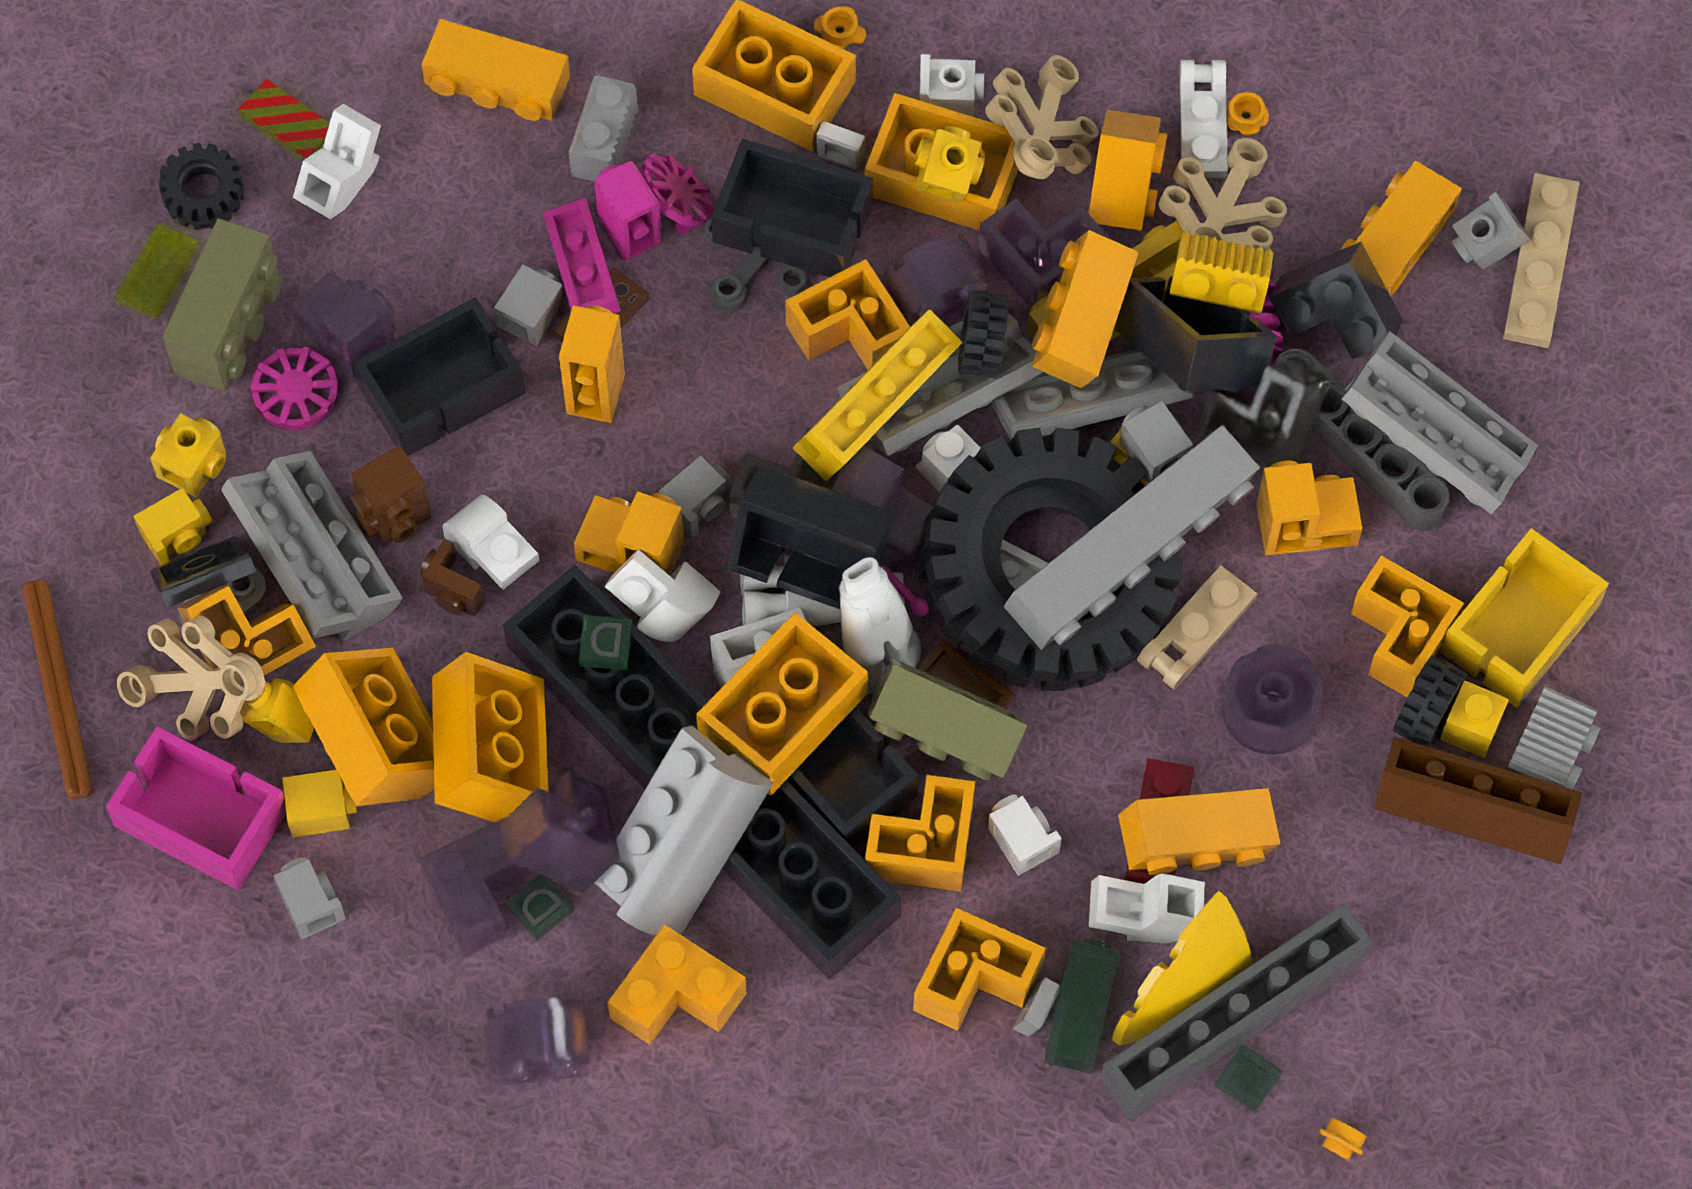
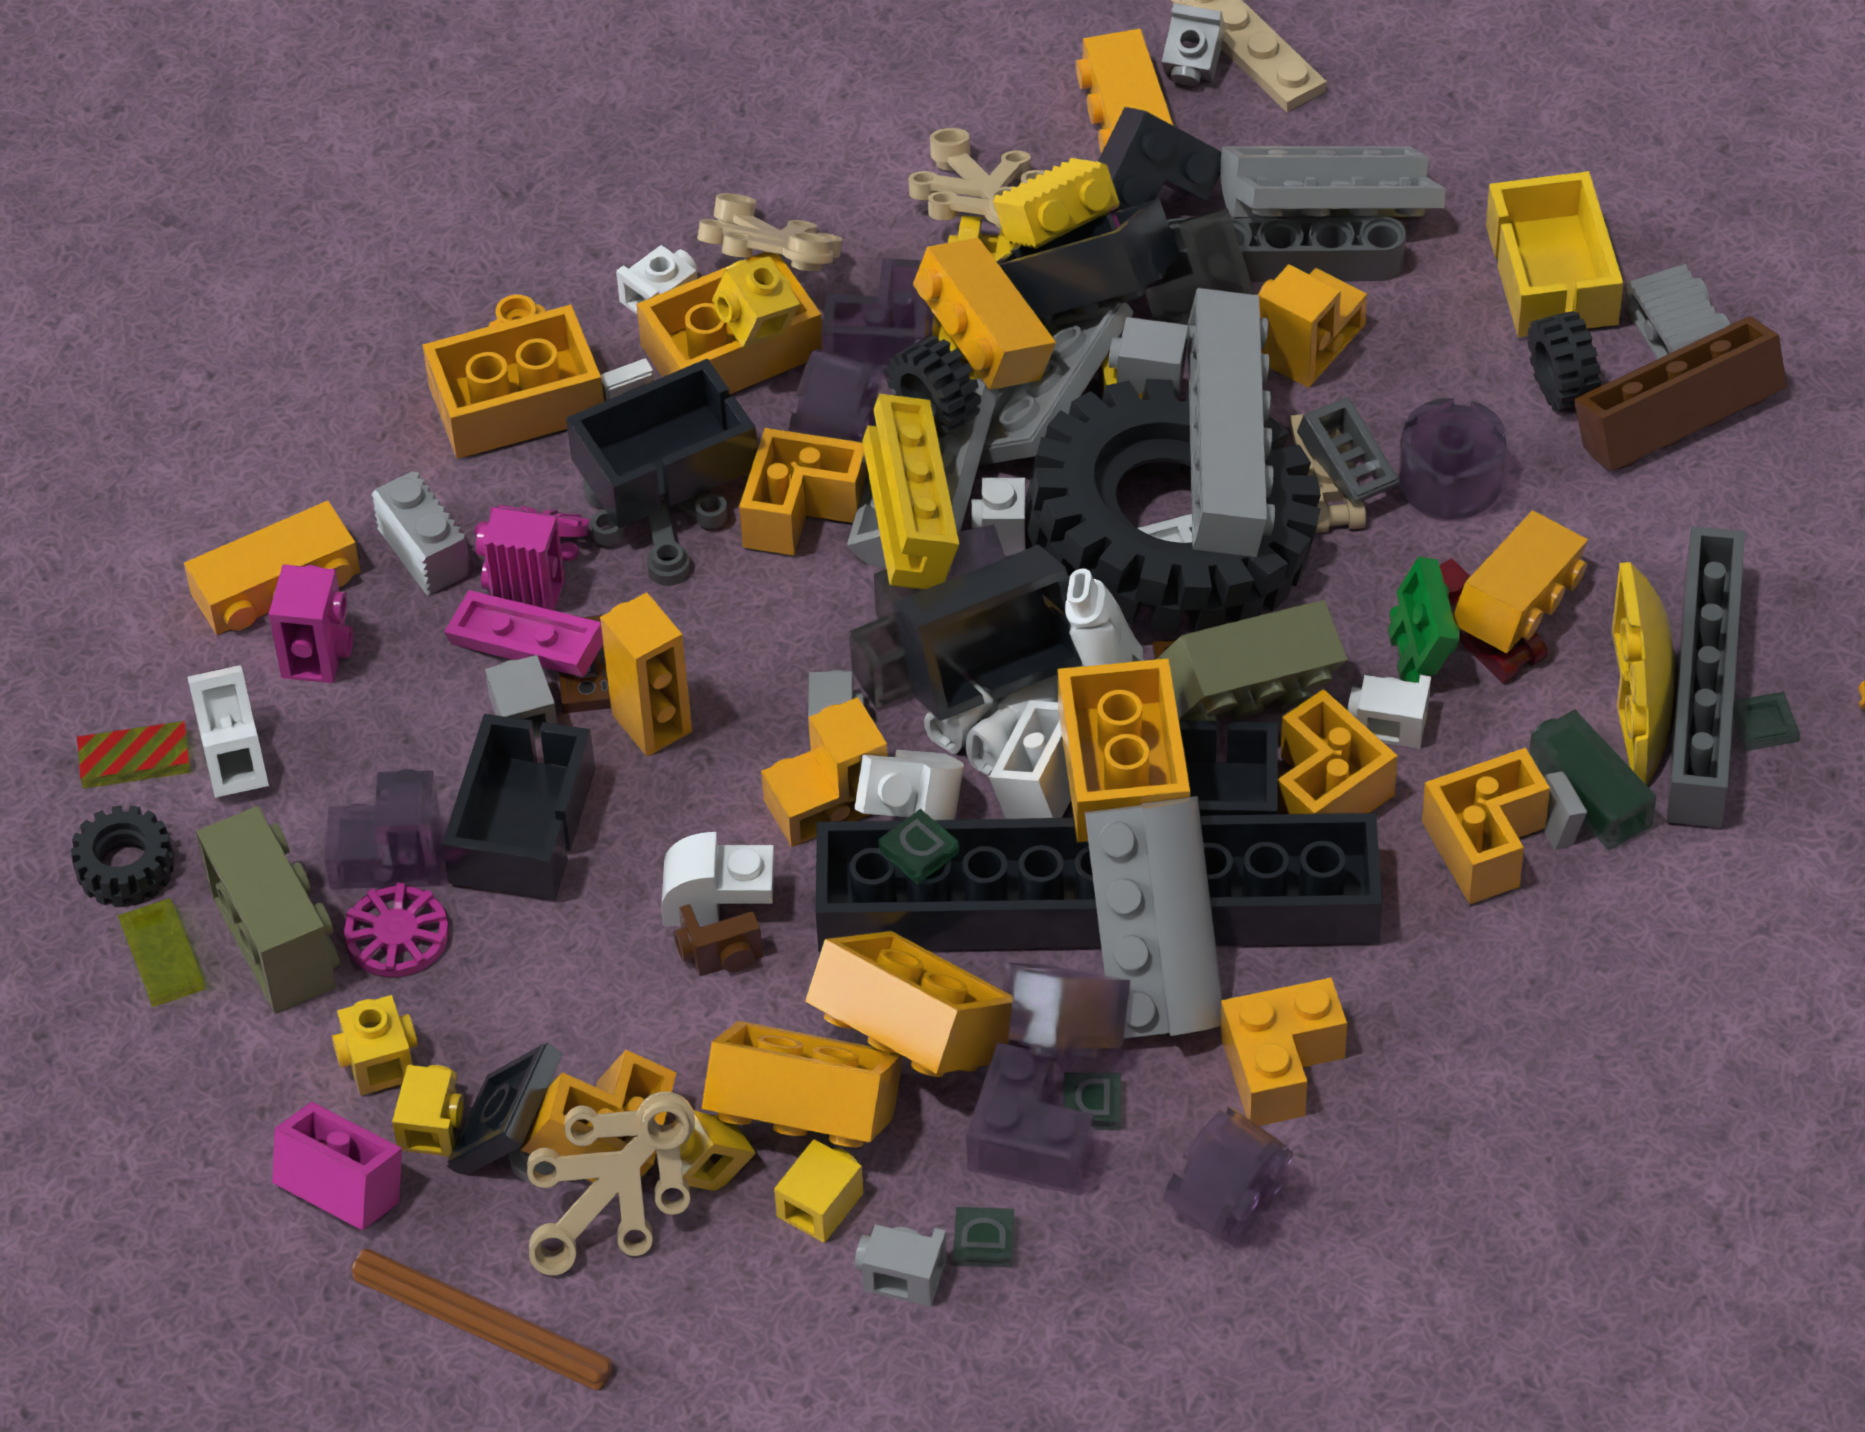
camera: 45 degrees left, 15 degrees down
(79, 512) = (337, 1165): none -> dark pink brick
(197, 809) = (721, 1296): dark pink piece -> none
(313, 546) = (571, 1009): light grey brick -> none
(377, 928) = (983, 1237): none -> tile
(390, 497) = (596, 916): reddish brown brick -> none
(460, 132) = (309, 623): none -> dark pink brick
(1106, 791) = (1422, 622): none -> green plate
(1126, 158) = (876, 214): light orange brick -> none
(1148, 910) = (1558, 667): white brick -> none
(1204, 116) = (874, 148): white plate -> none
(1221, 594) = (1344, 417): none -> dark grey slope
(1246, 103) = (908, 121): light orange plate -> none
(1411, 616) = (1476, 321): light orange brick -> none
(1474, 719) = (1616, 342): yellow brick -> none

